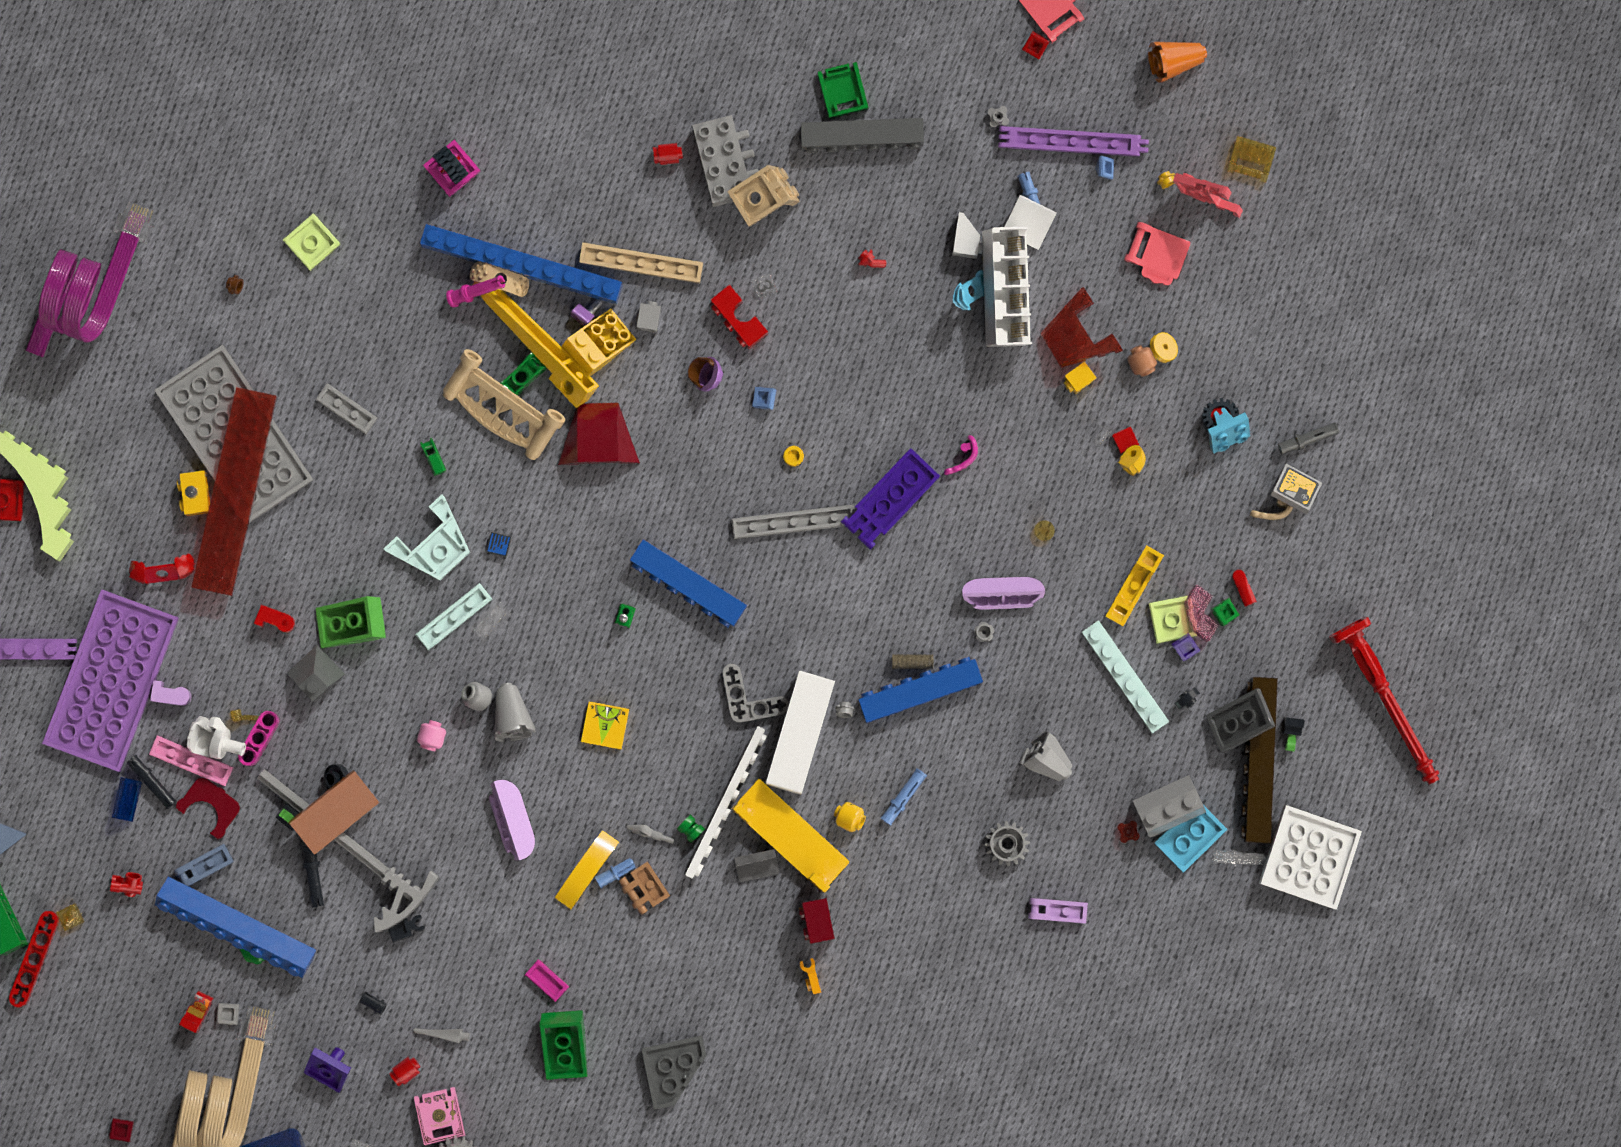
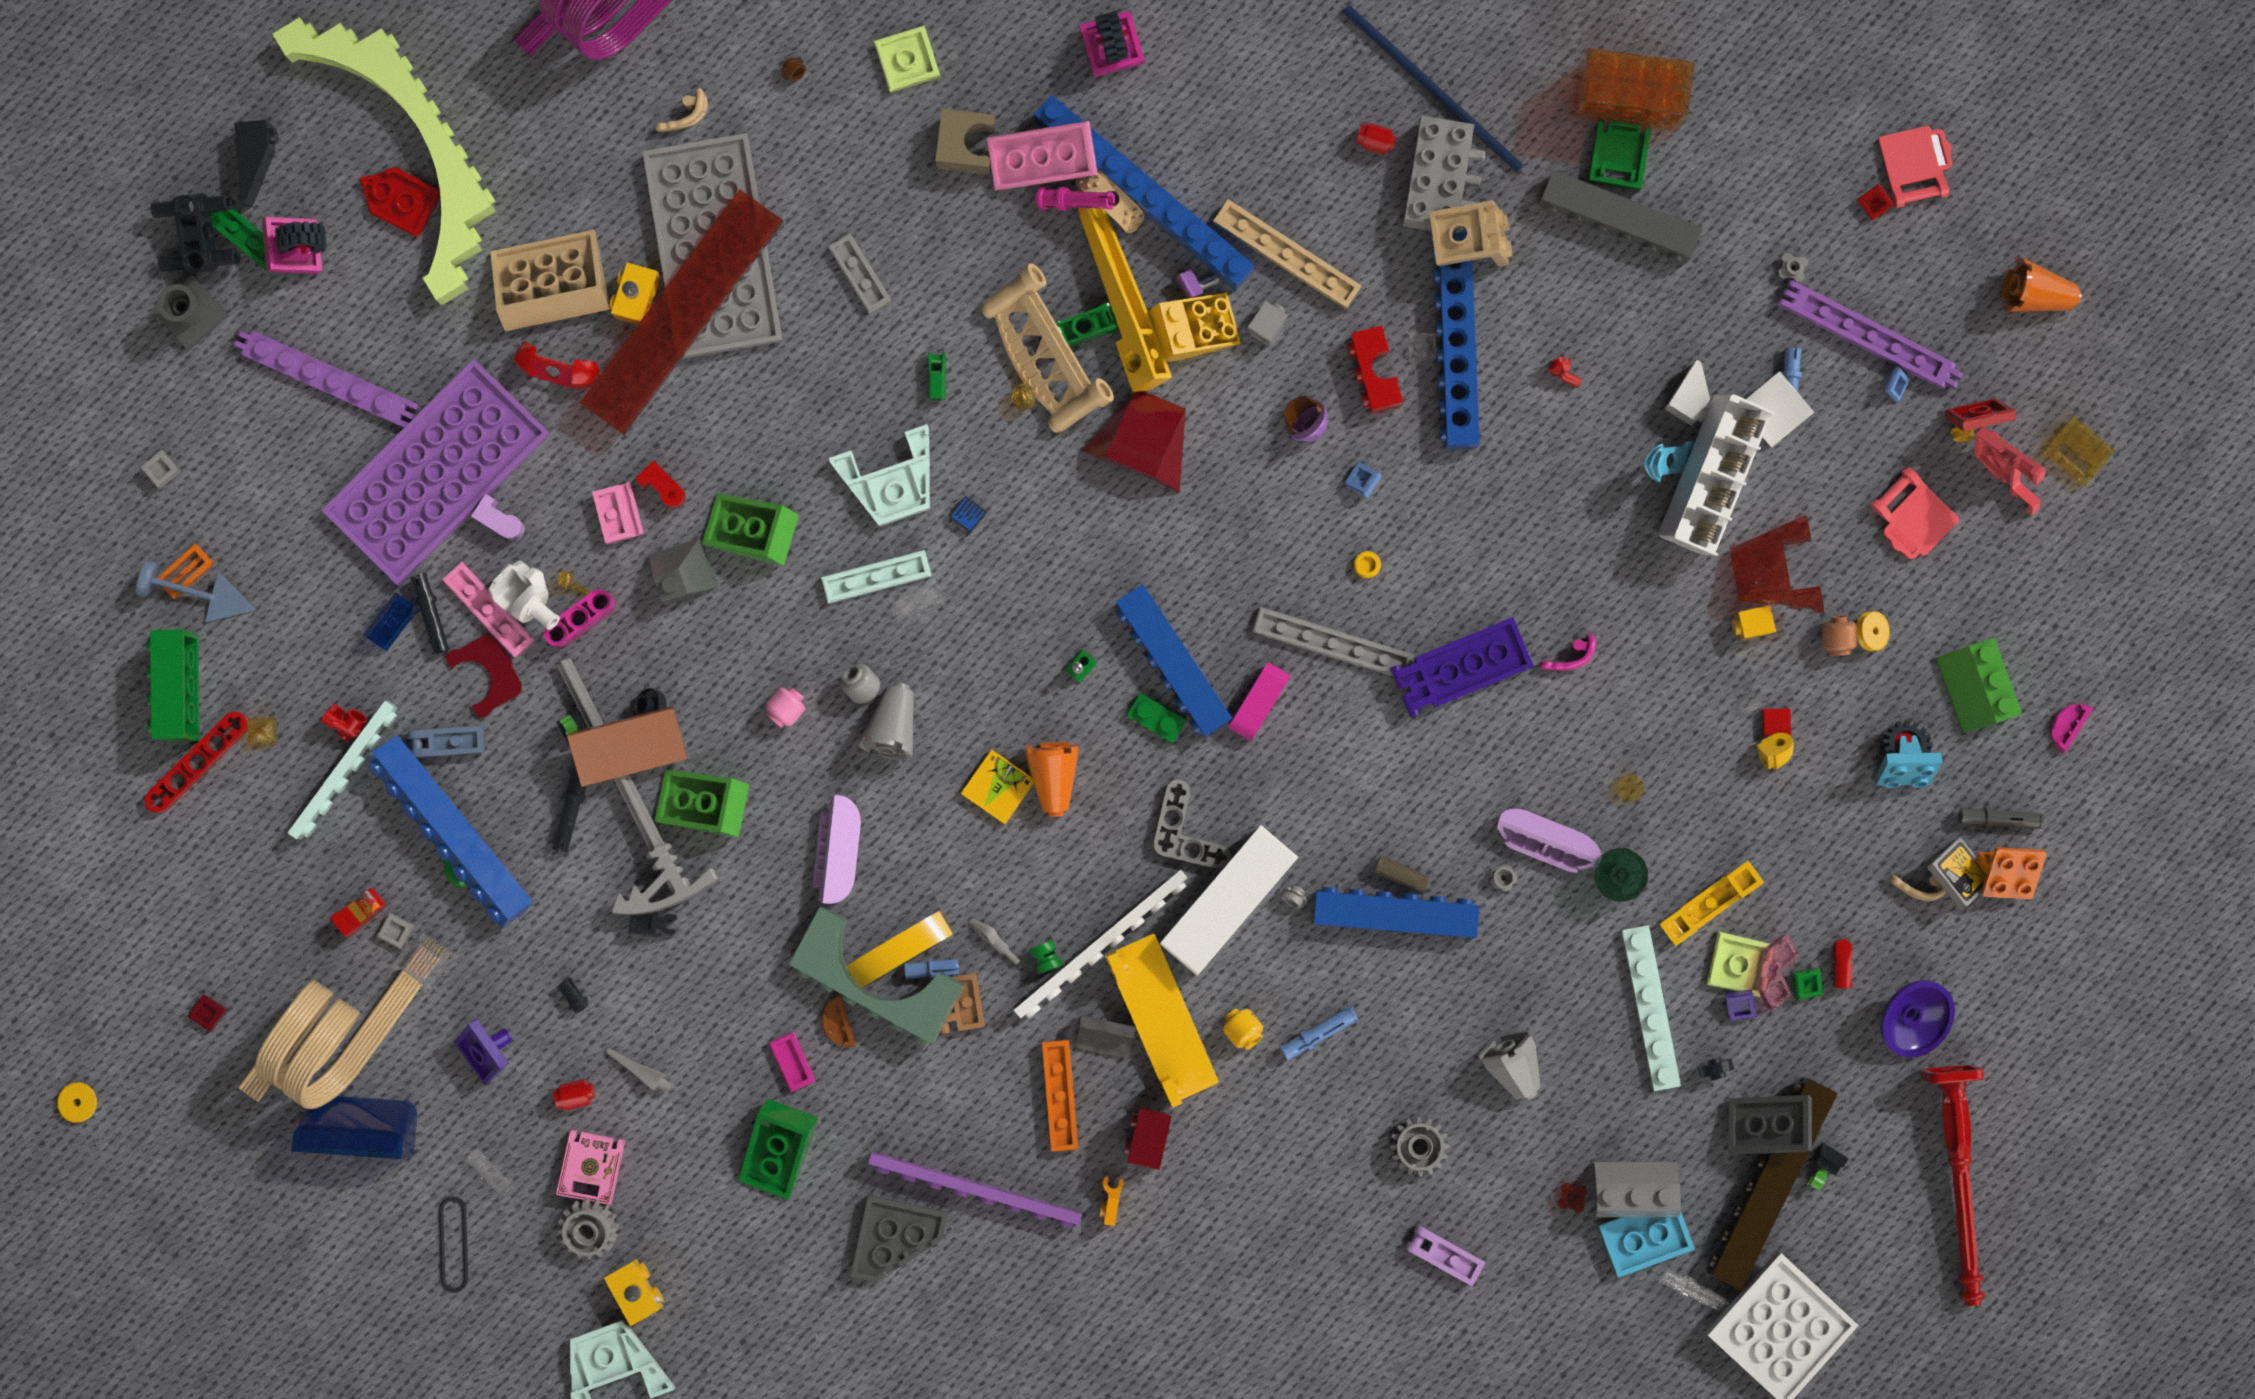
camera: 30 degrees right, 0 degrees up
(129, 510) = (549, 280): none -> tan slope
(140, 928) = (337, 780): none -> light aqua plate
(177, 338) = (697, 104): none -> tan piece
(252, 652) = (618, 513): none -> bright pink plate
(369, 284) = (954, 132): none -> dark tan piece
(403, 828) = (702, 802): none -> bright green slope
(438, 270) = (1042, 156): none -> bright pink tile
(500, 445) = (1023, 397): none -> clear yellow tile
(536, 899) = (822, 959): none -> sand green arch
(566, 940) = (837, 1024): none -> dark orange tile
(639, 699) = (1053, 774): none -> orange cone
(691, 100) = (1432, 88): none -> dark blue piece
(694, 628) = (1156, 718): none -> green plate
(704, 1013) = (986, 1193): none -> medium lavender plate
(743, 920) = (1060, 1095): none -> orange plate
(760, 585) = (1259, 701): none -> dark pink beam
(823, 334) = (1467, 435): none -> blue brick
(831, 42) = (1633, 89): none -> clear orange brick
(1064, 584) = (1632, 874): none -> clear green cylinder
(1171, 164) = (1980, 414): none -> red tile
(1253, 353) = (1978, 685): none -> bright green slope
(1317, 605) = (1917, 1018): none -> dark purple dish
(1326, 352) = (2067, 725): none -> dark pink tile
(1330, 473) = (2011, 872): none -> orange bracket

